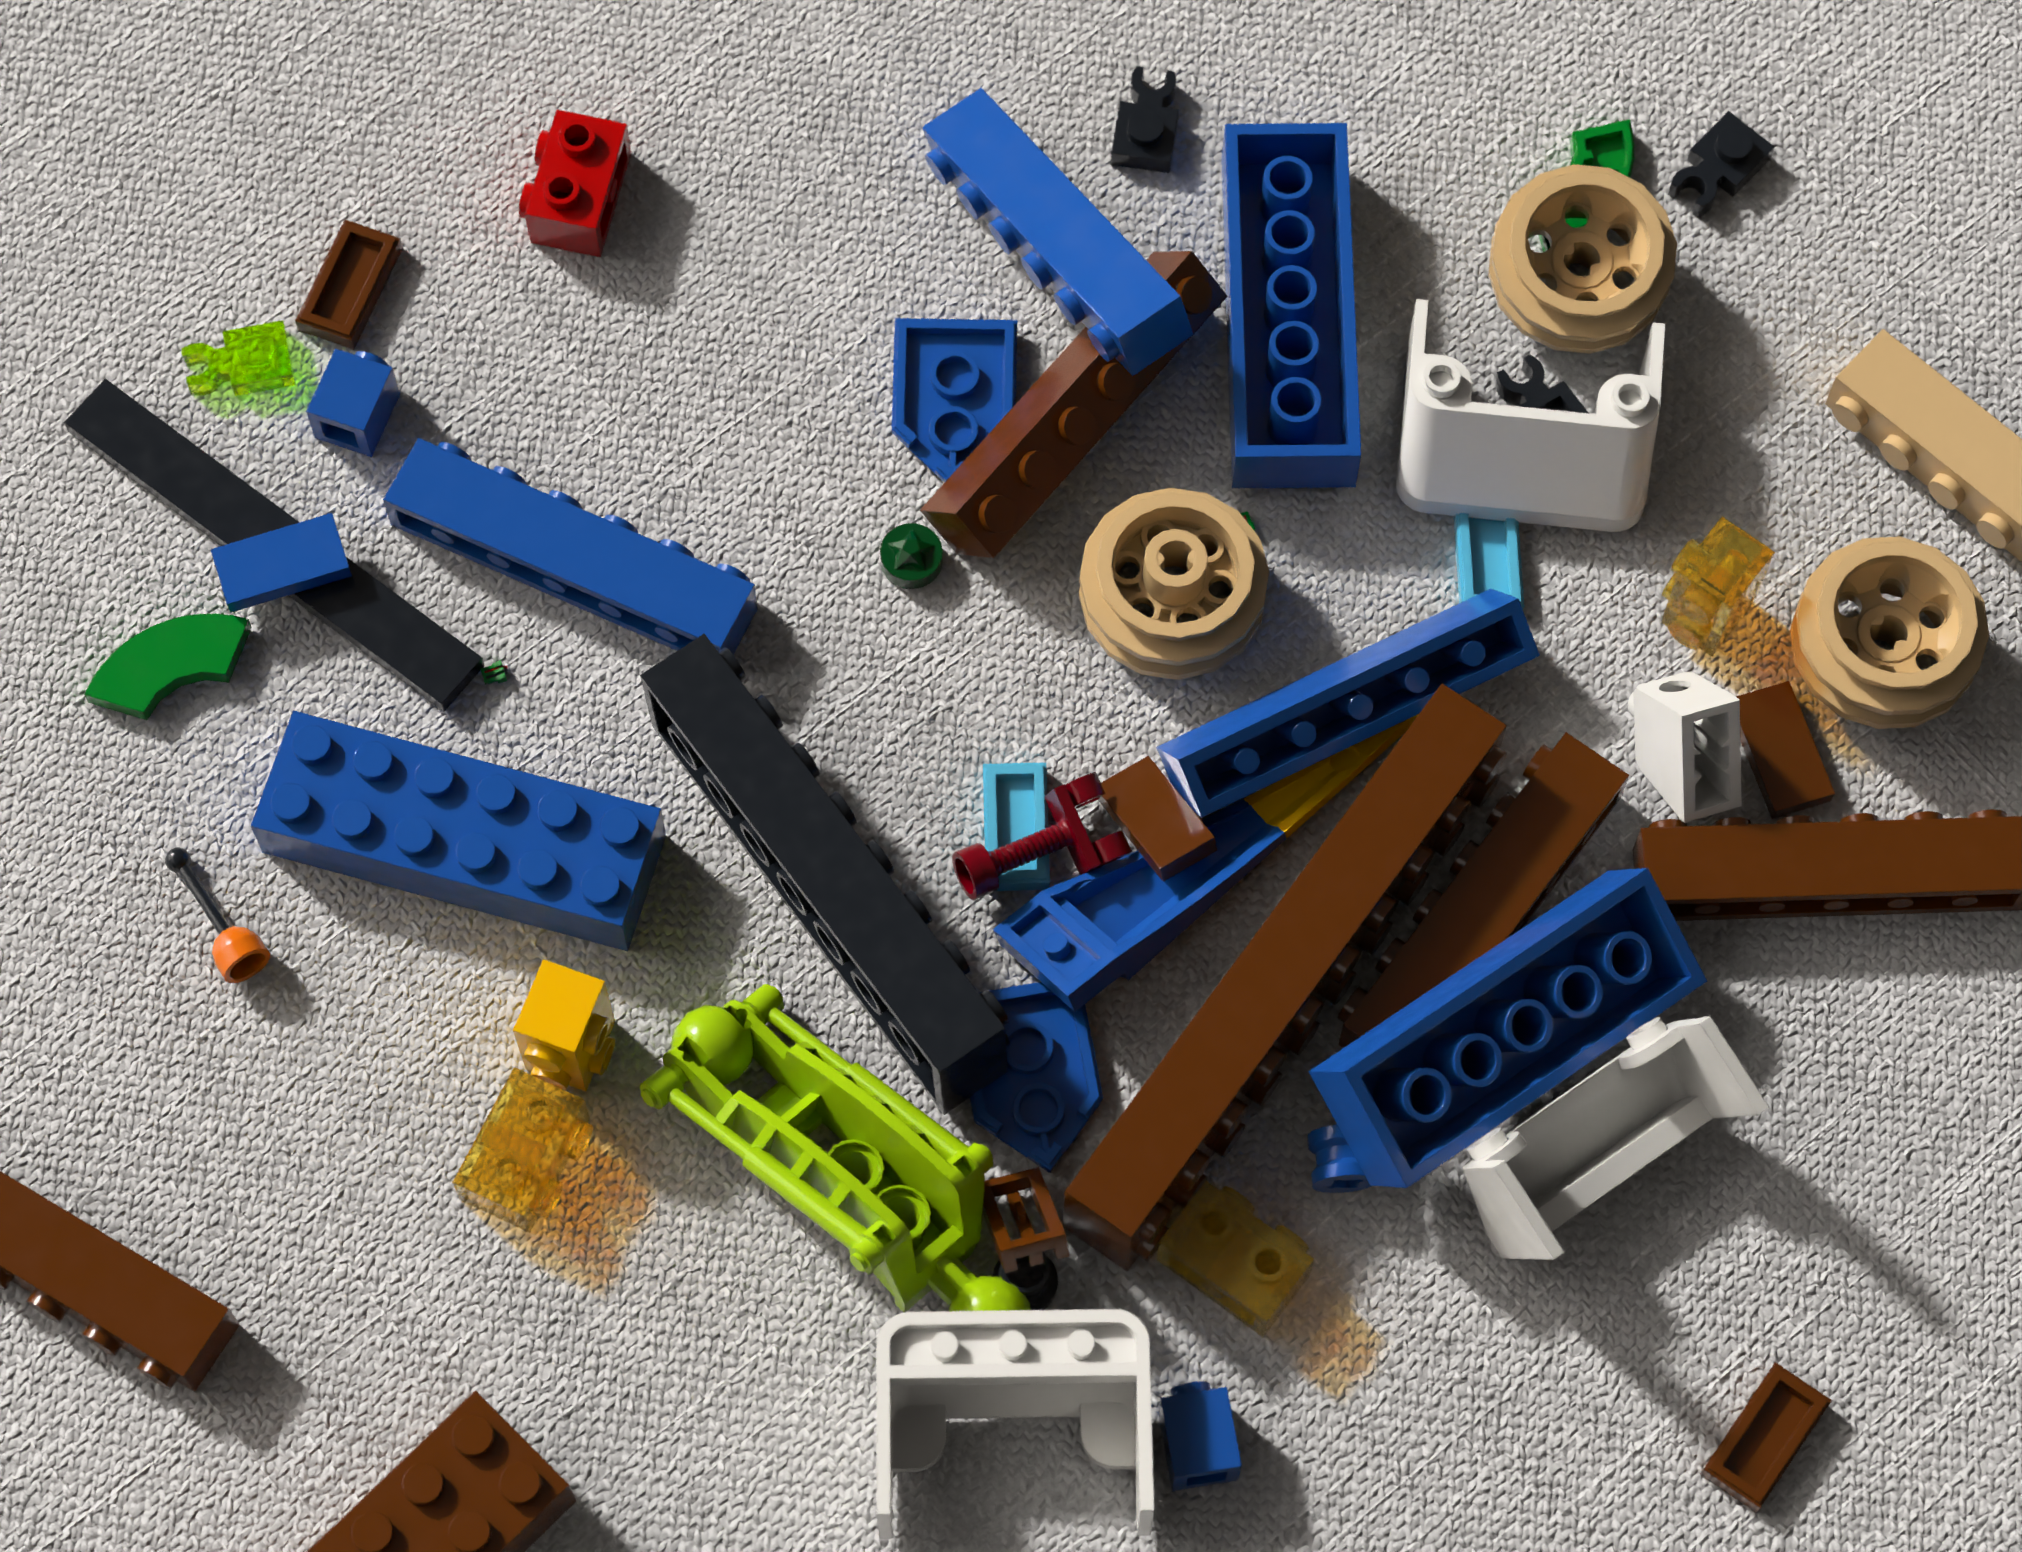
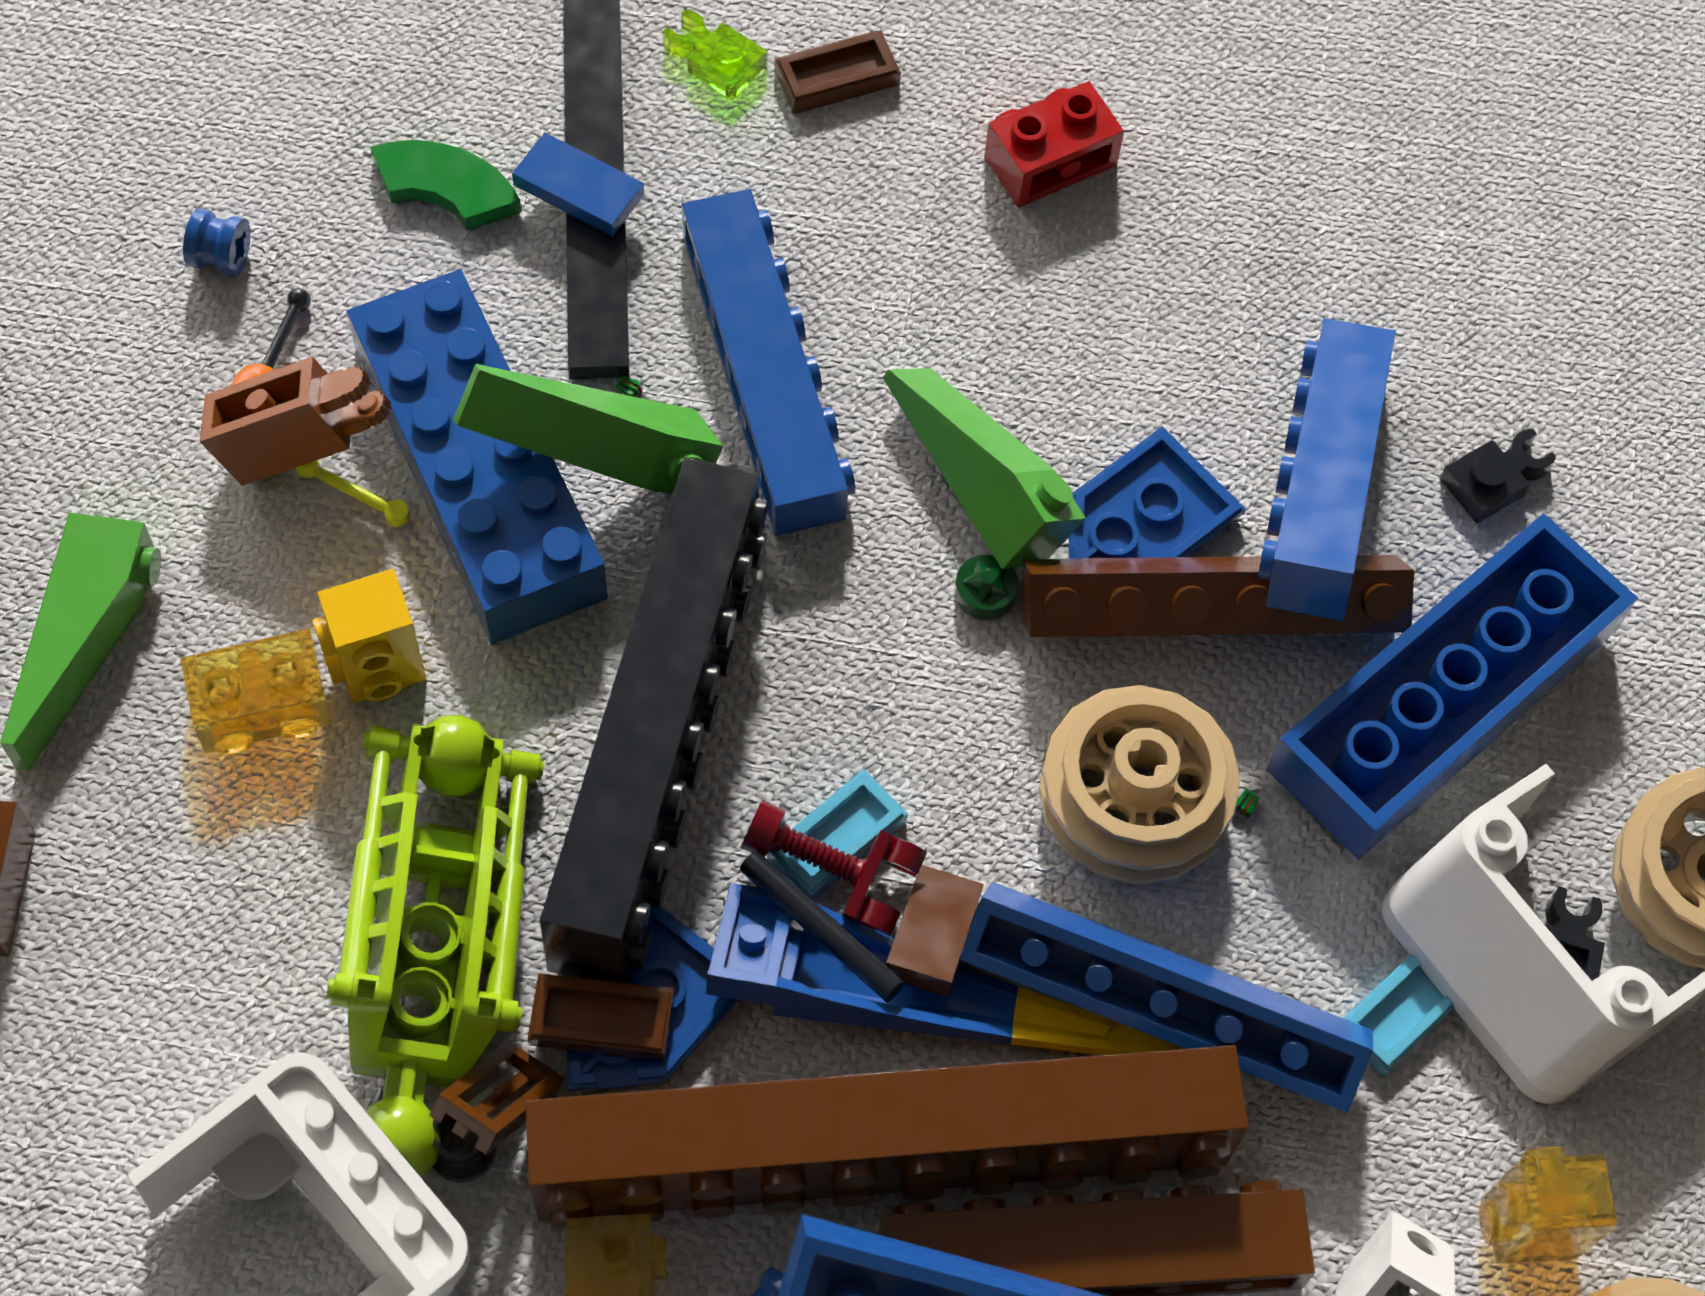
camera: 45 degrees right, 5 degrees down
(69, 881) = (216, 242): none -> blue wheel
(310, 942) = (288, 418): none -> dark orange hinge
(317, 1208) = (83, 614): none -> bright green slope
(353, 401) = (747, 136): blue brick -> none
(446, 933) = (395, 511): none -> neon yellow hinge
(552, 716) = (587, 426): none -> bright green slope
(842, 471) = (1000, 482): none -> bright green slope
(1019, 1100) = (601, 1017): none -> reddish brown tile
(1090, 891) = (821, 926): none -> black bar

